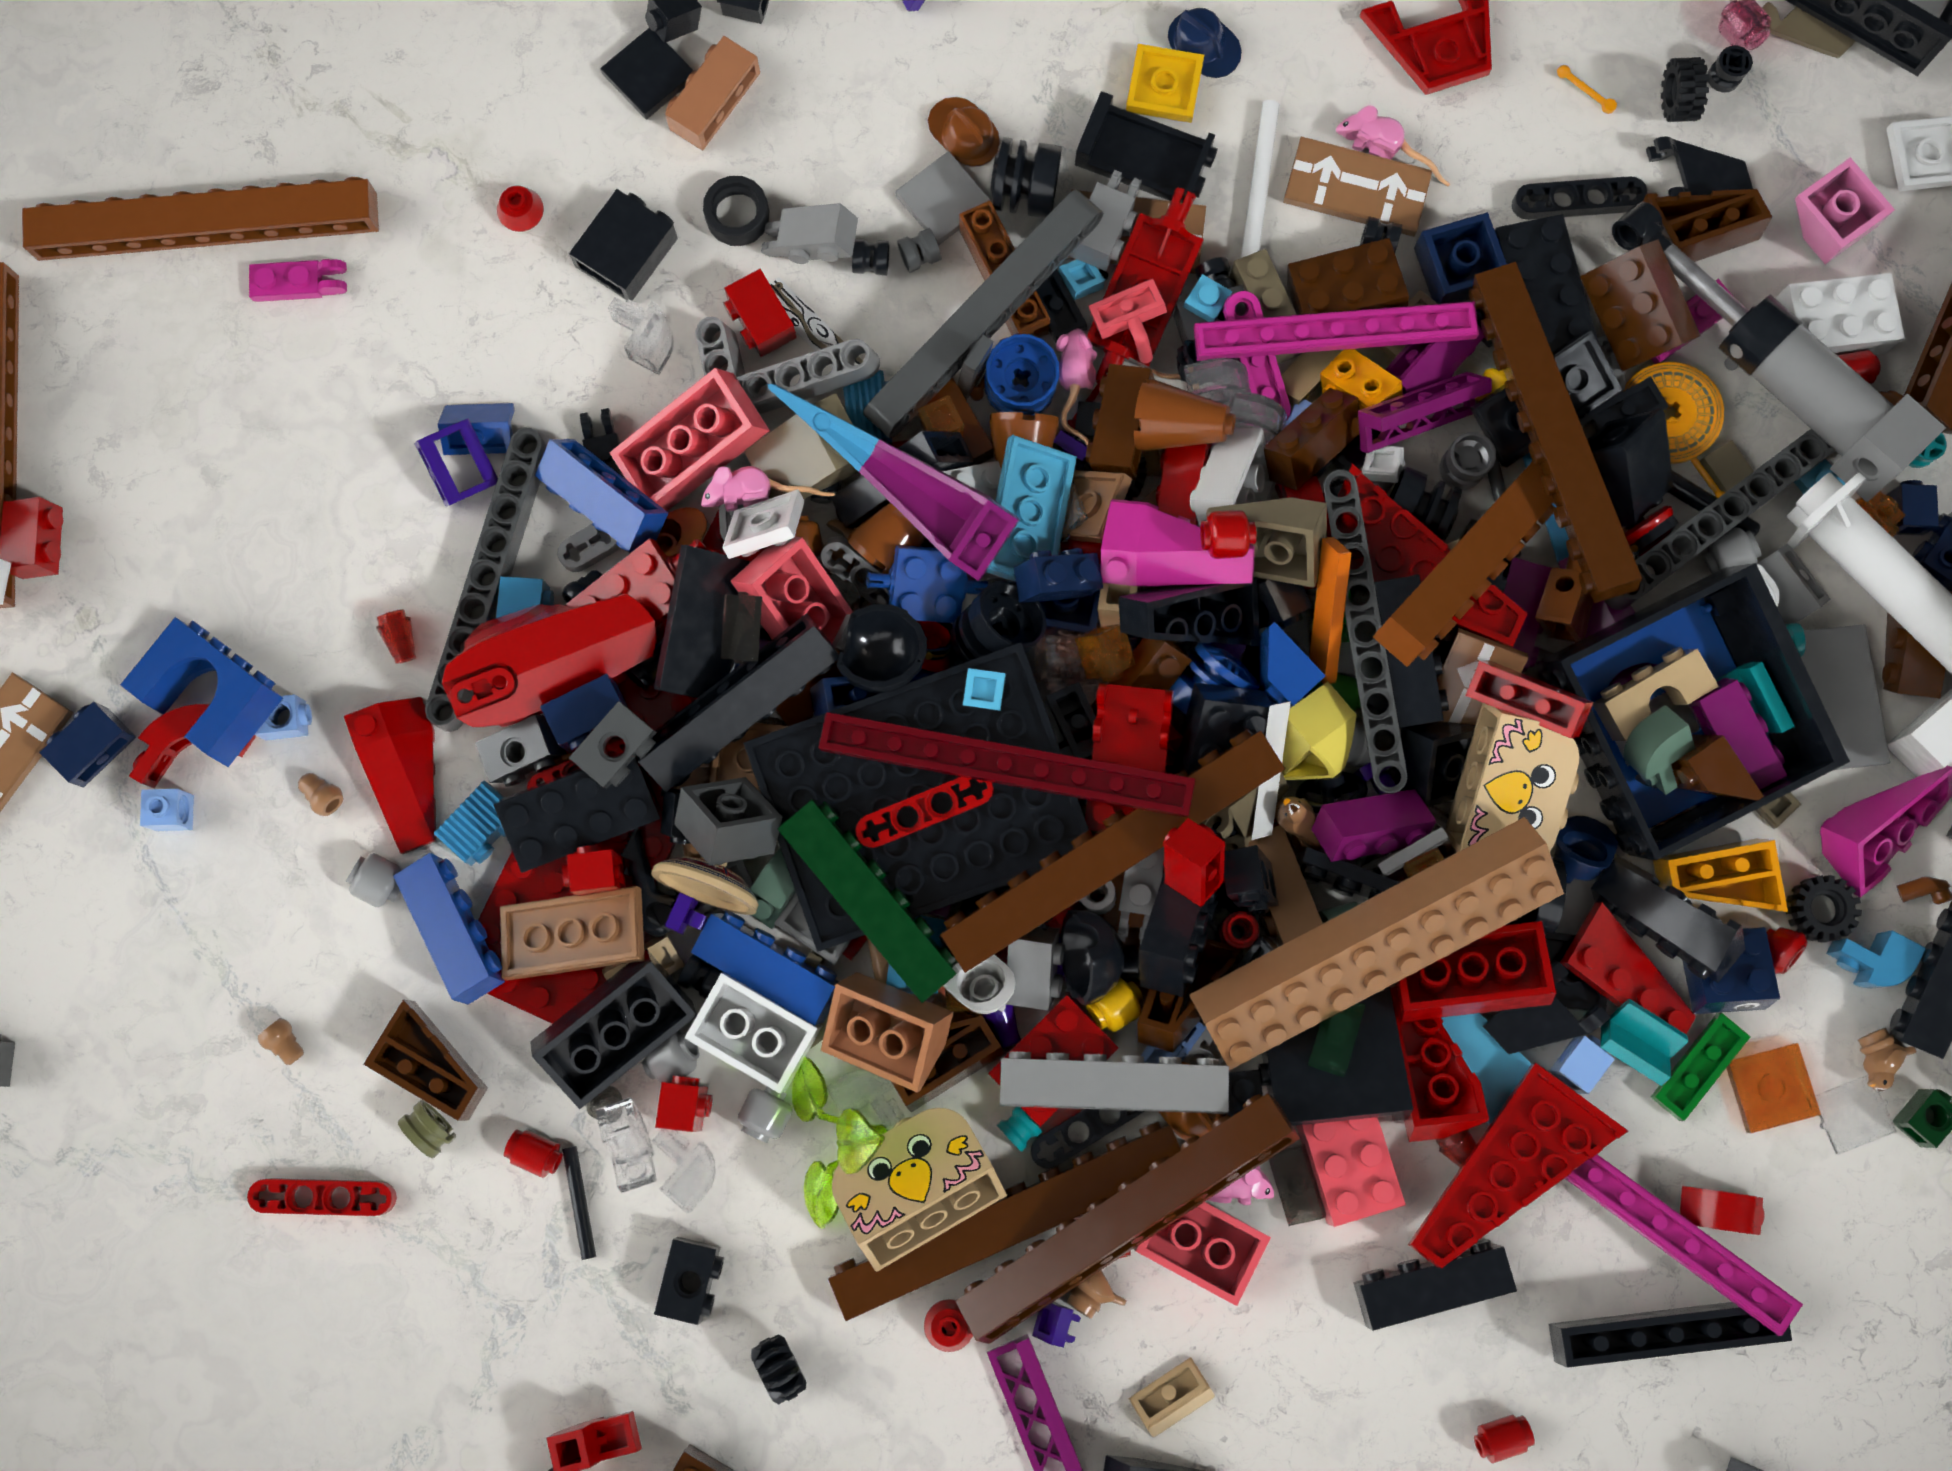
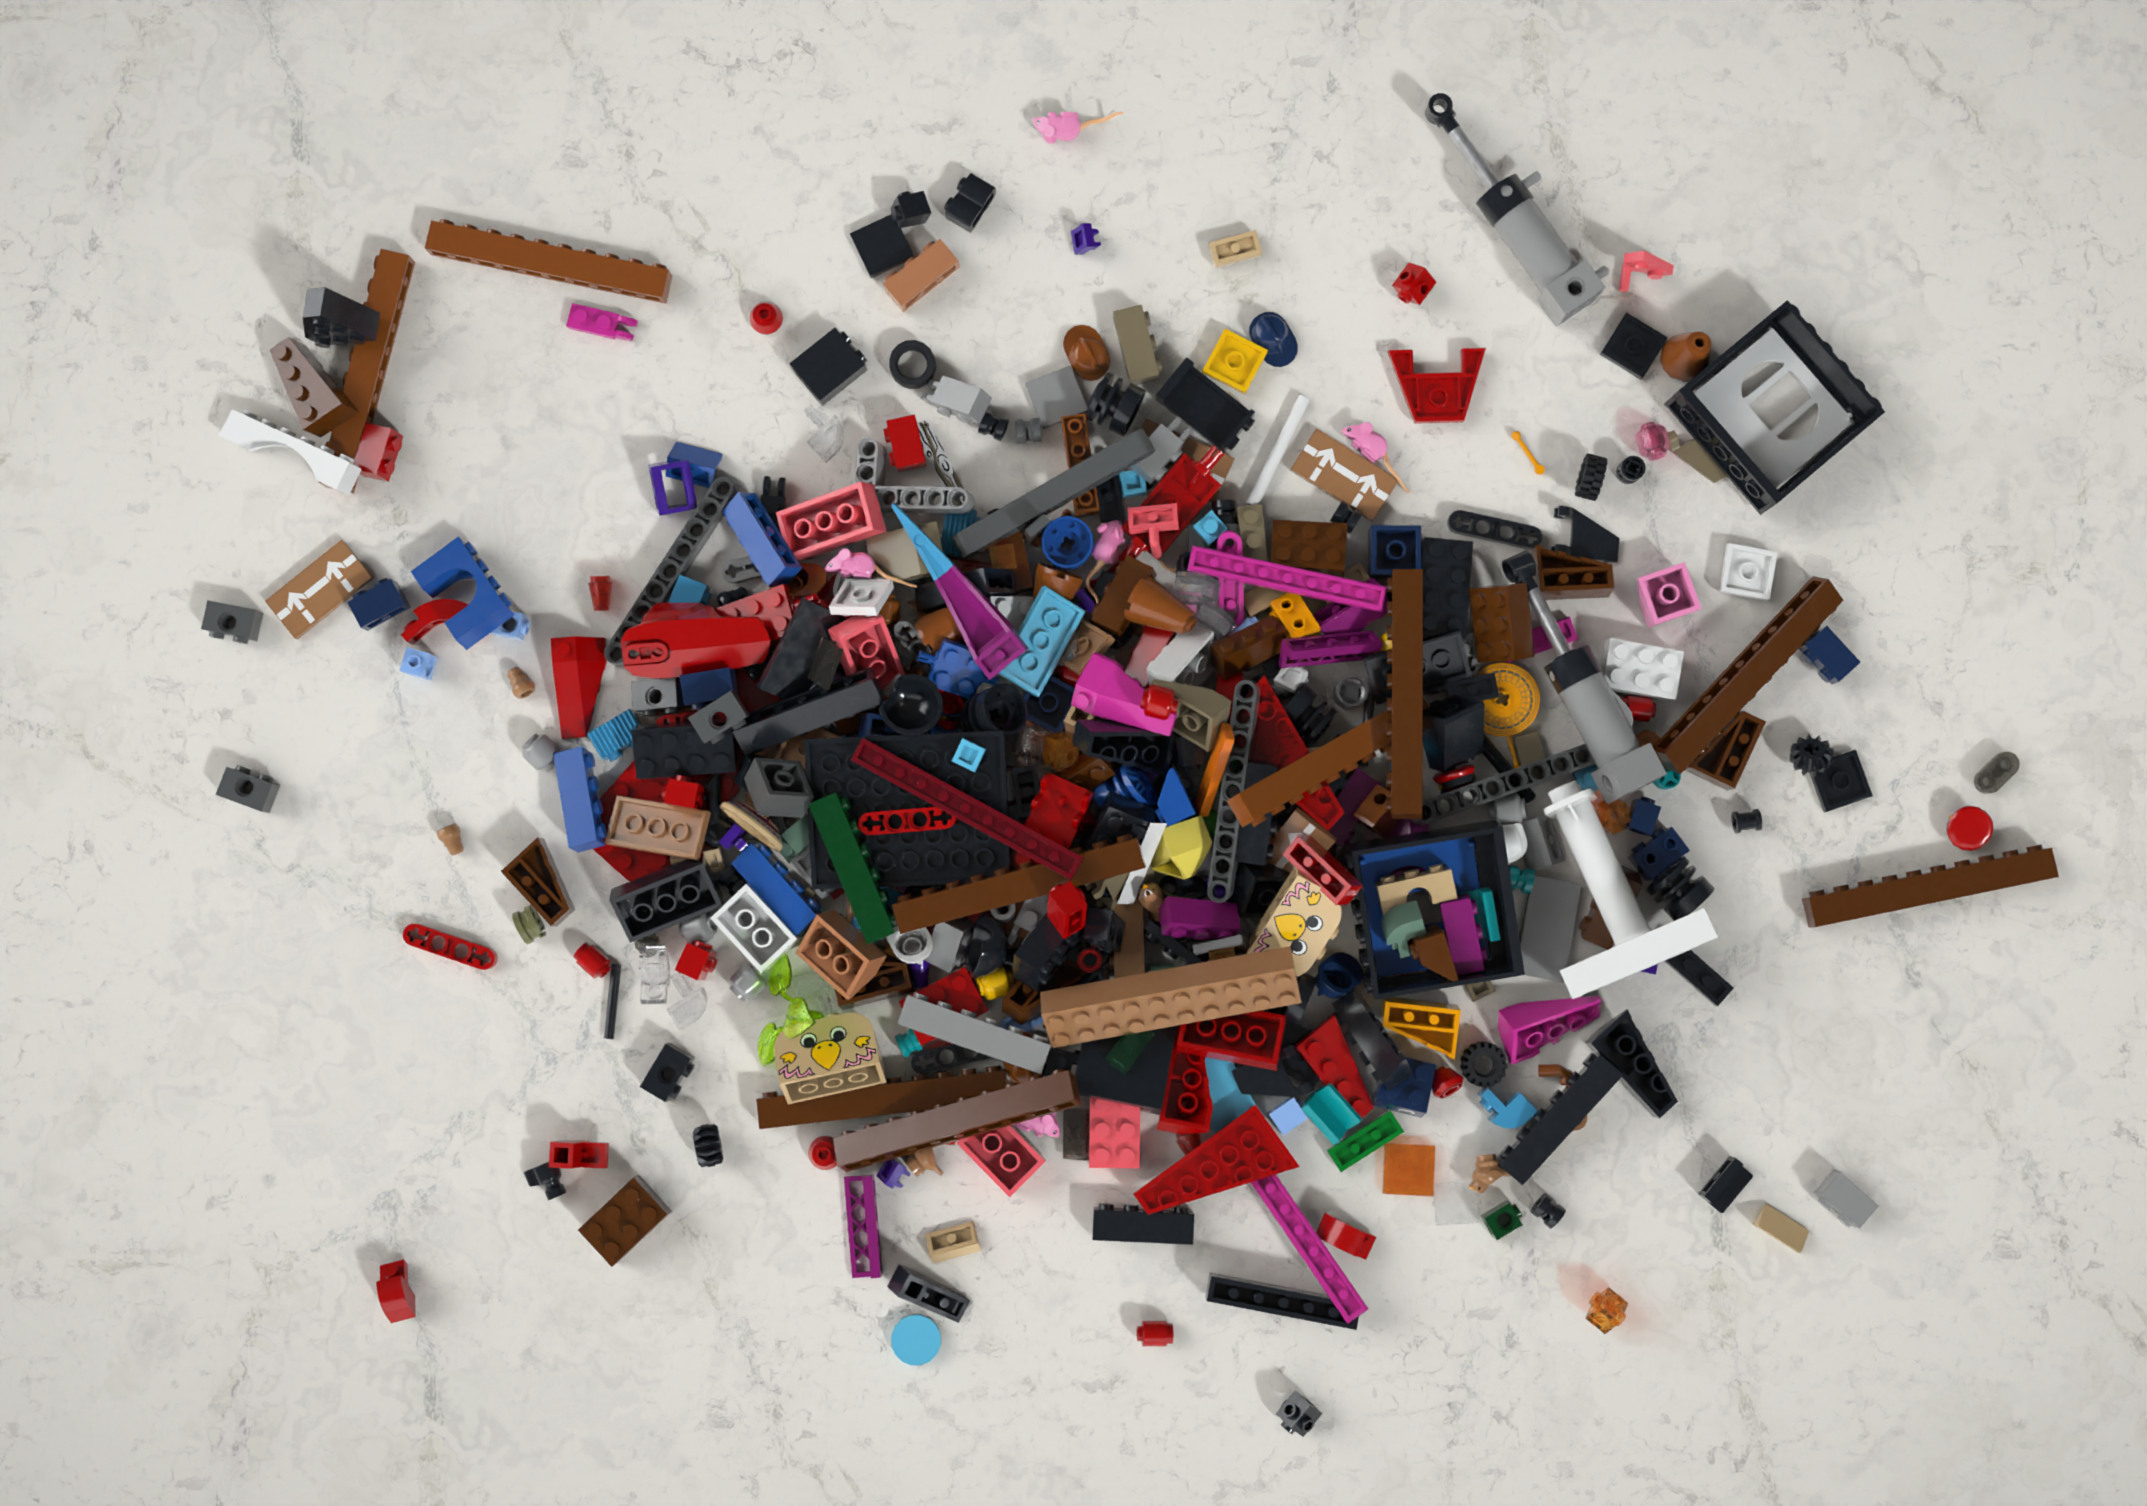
camera: 20 degrees right, 5 degrees up
(1028, 97) = (1137, 345): none -> dark tan brick
(1058, 576) = (1042, 692): dark blue brick -> none

